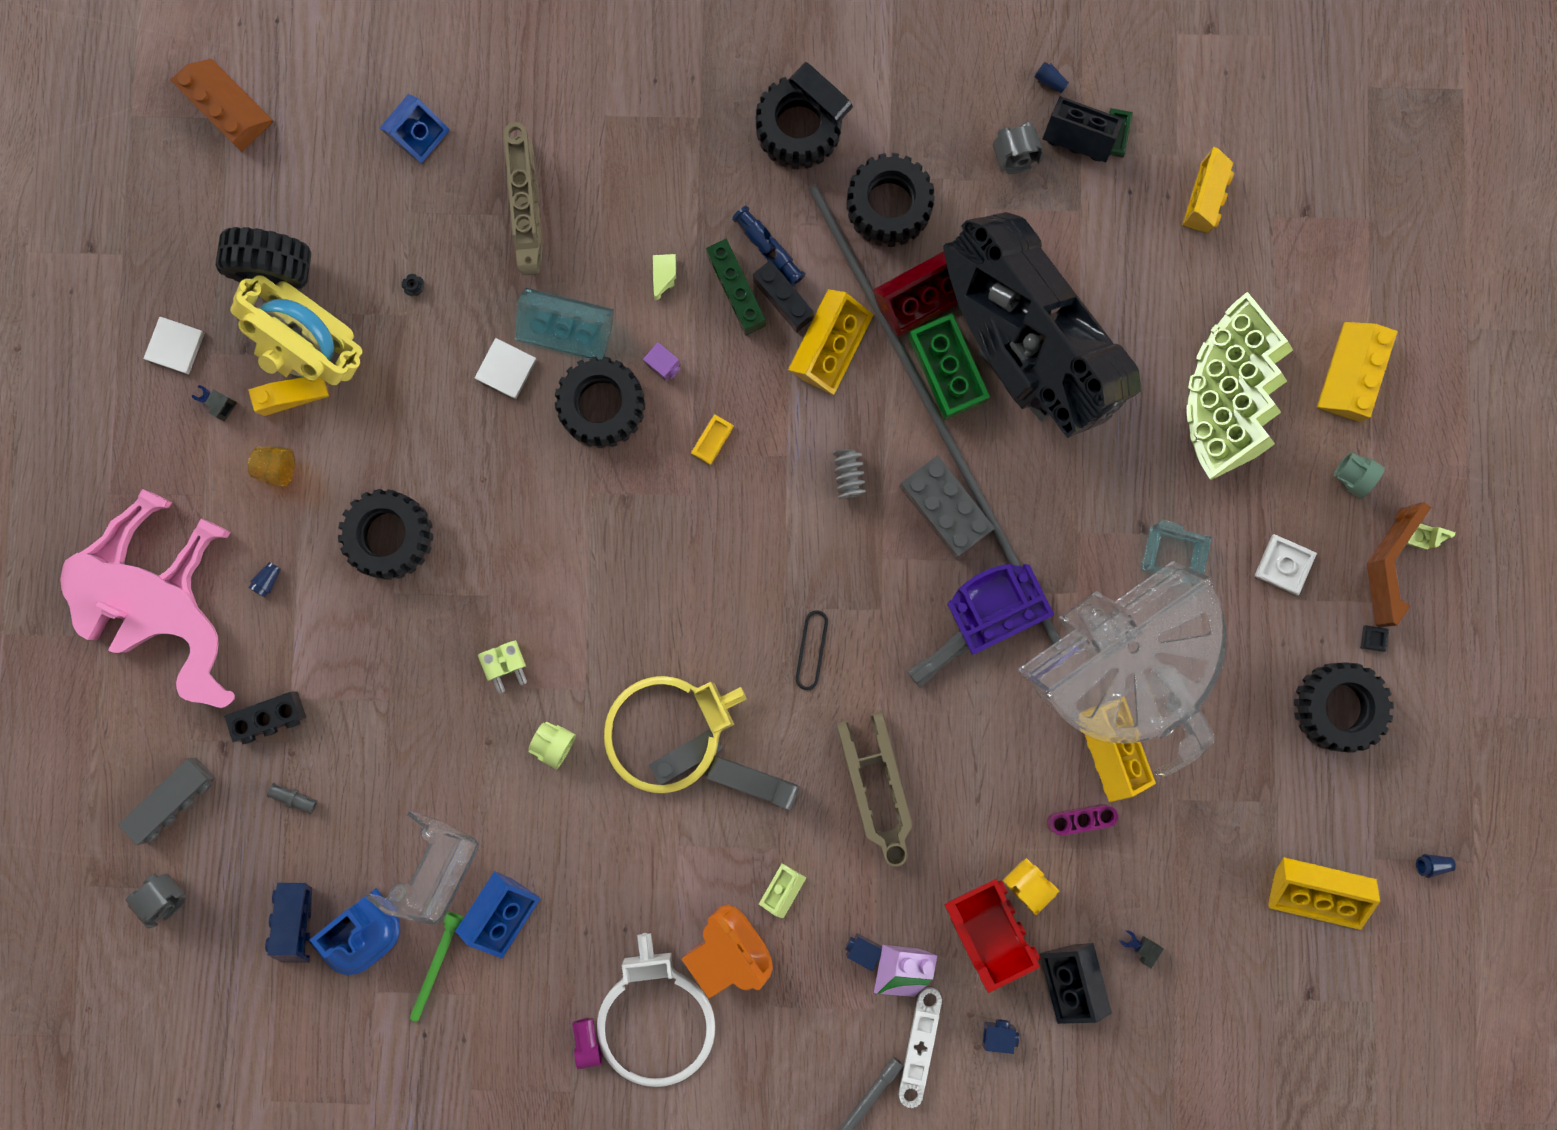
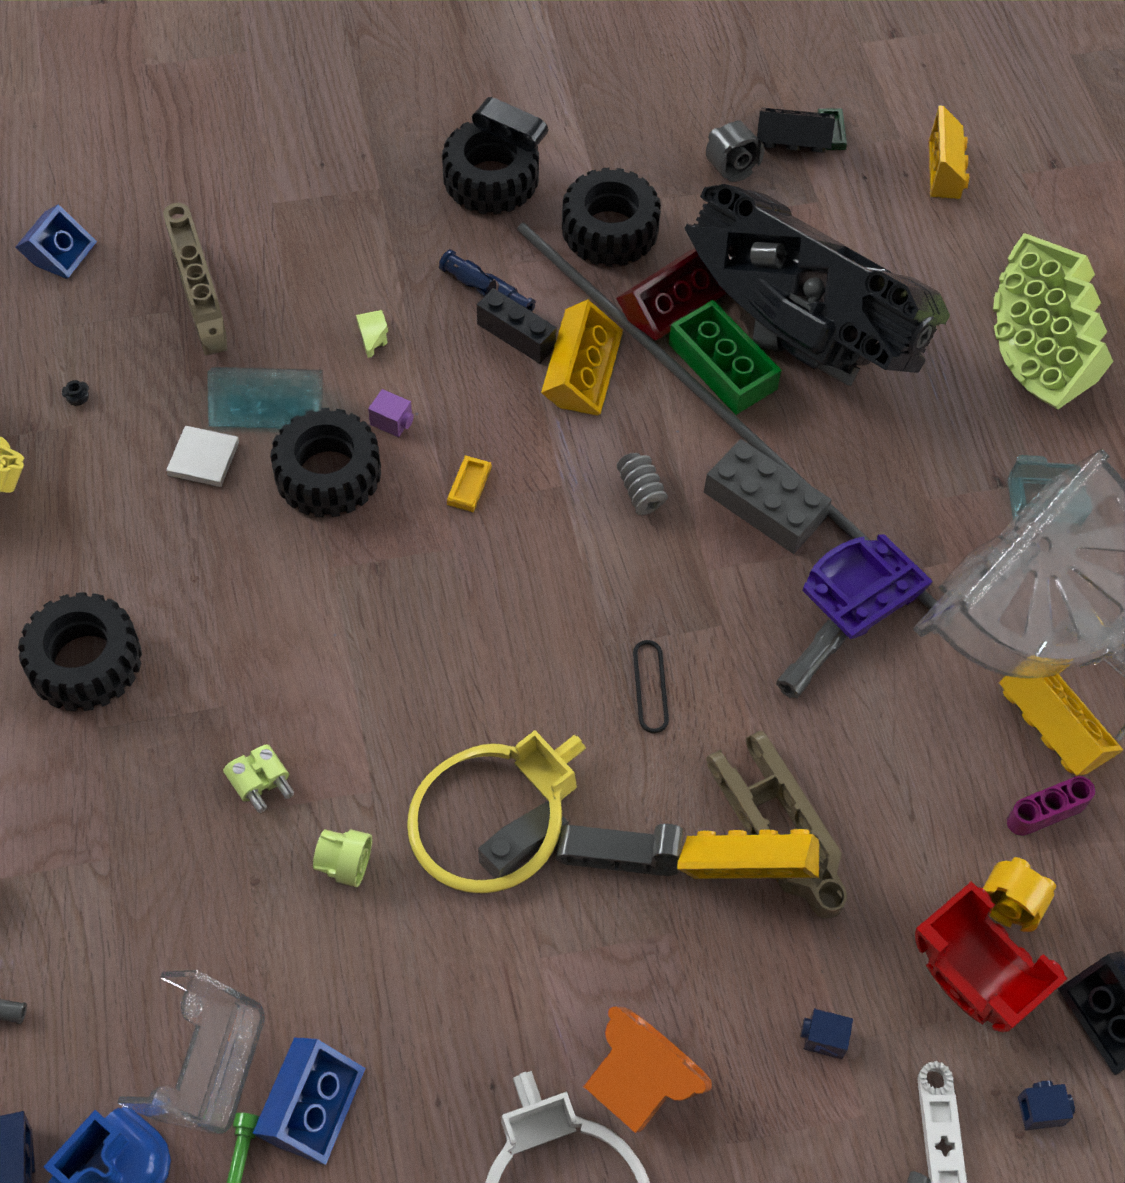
camera: 20 degrees left, 25 degrees down
(736, 287) = (460, 326): dark green brick -> none
(782, 891) = (695, 983): yellowish green slope -> none
(842, 819) = (750, 855): none -> yellow slope
(904, 970) = (890, 1041): lavender slope -> none
(1051, 77) = (747, 92): dark blue cone -> none

